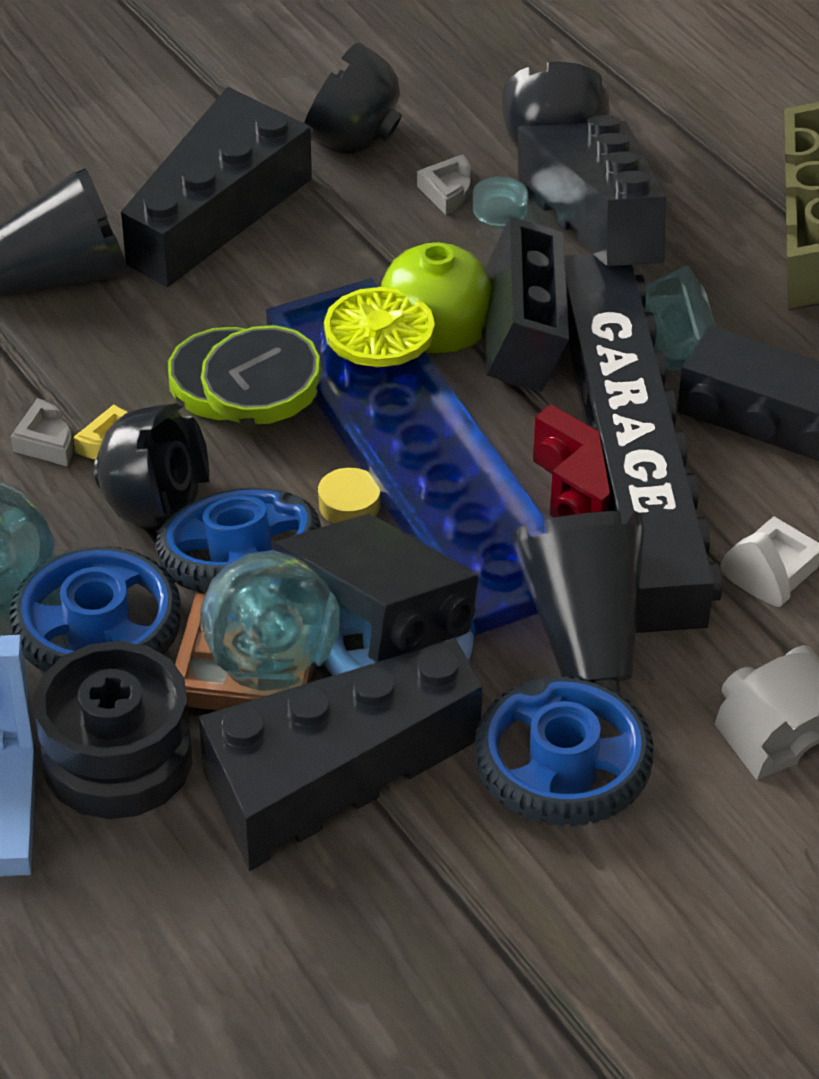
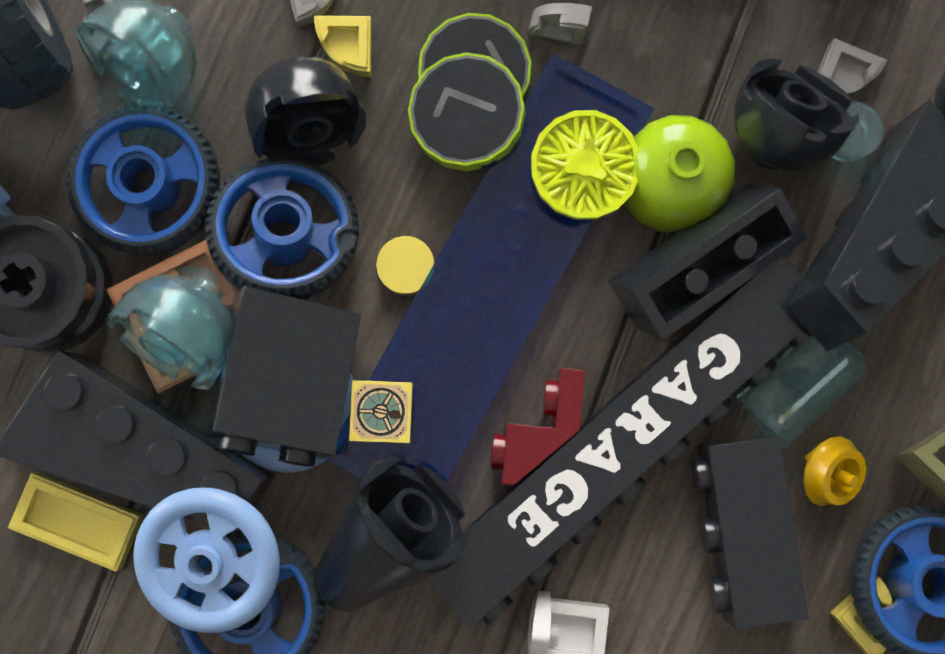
camera: 55 degrees right, 40 degrees up
(245, 296) = (561, 22): none -> light grey tile
(362, 853) = (76, 521): none -> light yellow tile
(461, 209) = (791, 117): none -> black cylinder
(472, 543) = (381, 411): none -> tile
(489, 753) = (224, 514): none -> light blue plate
(770, 327) = (834, 472): none -> yellow hat

